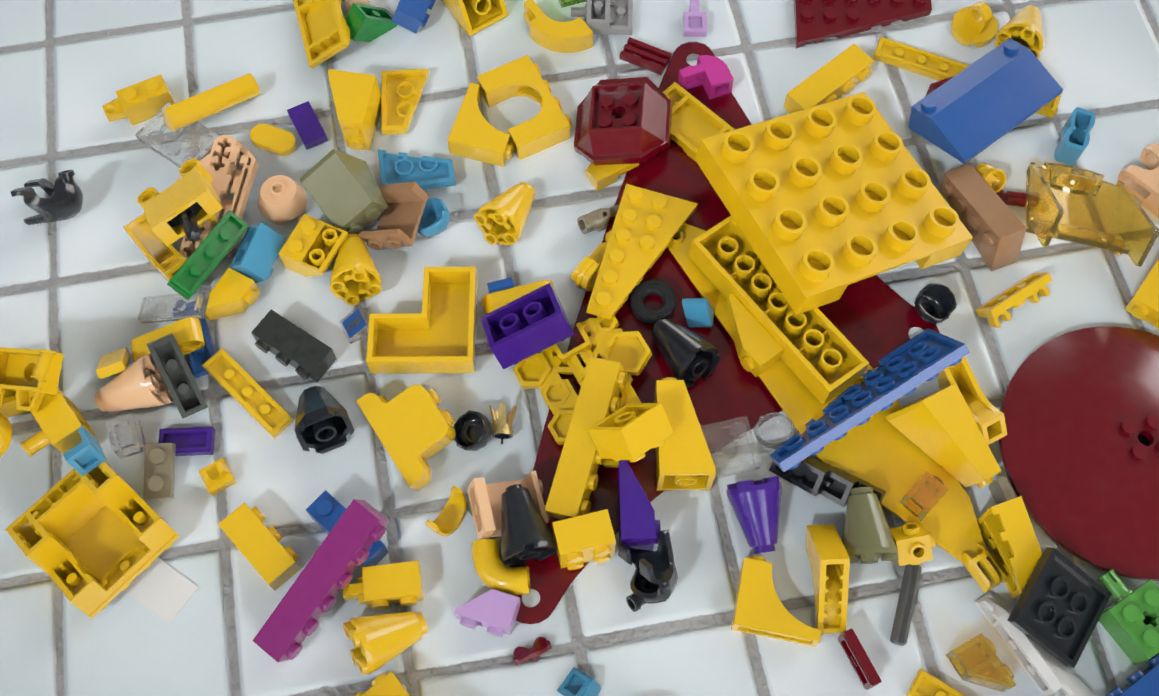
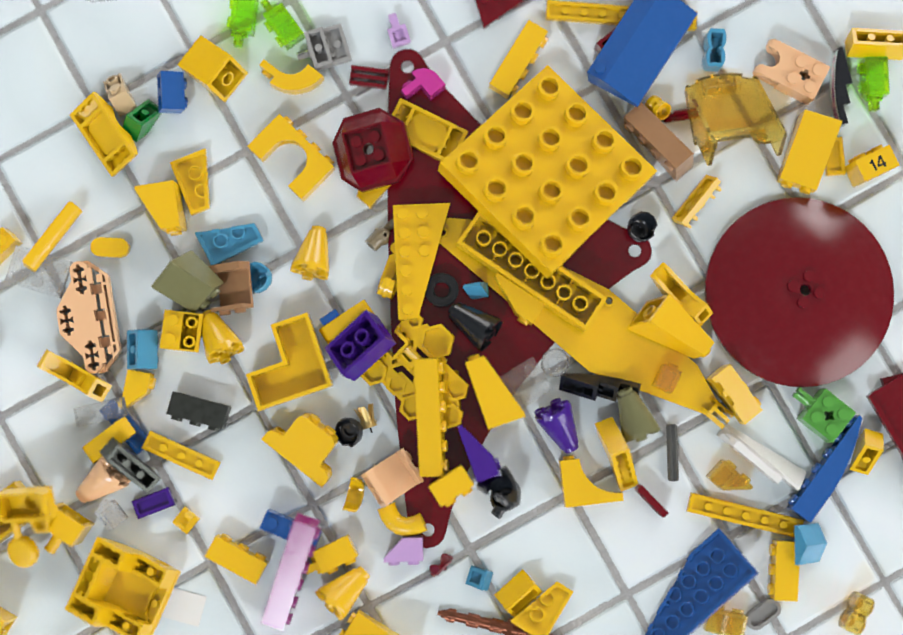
camera: 25 degrees left, 20 degrees up
(86, 454) = (95, 543): dark azure panel -> none
(113, 363) = (78, 468): yellow tile -> none
(159, 470) = (145, 530): dark tan plate -> none
(183, 205) = (76, 341): yellow piece -> none
(208, 255) = (110, 367): green tile -> none
(282, 199) = (140, 298): light nougat cone -> none
(307, 125) = (131, 226): dark purple tile -> none
(321, 421) = (241, 459): black cone -> none
(355, 325) = (235, 378): slope -> none
(474, 136) = (261, 196): yellow arch -> none
(523, 528) = (408, 491): black cone -> none
(631, 431) = (460, 409): yellow brick -> none
(896, 377) = (632, 297): blue wing -> none
(913, 543) = (666, 413): yellow brick -> none
(1001, 490) = (719, 356): dark tan tile -> none
(1059, 607) = (770, 426): black plate -> none

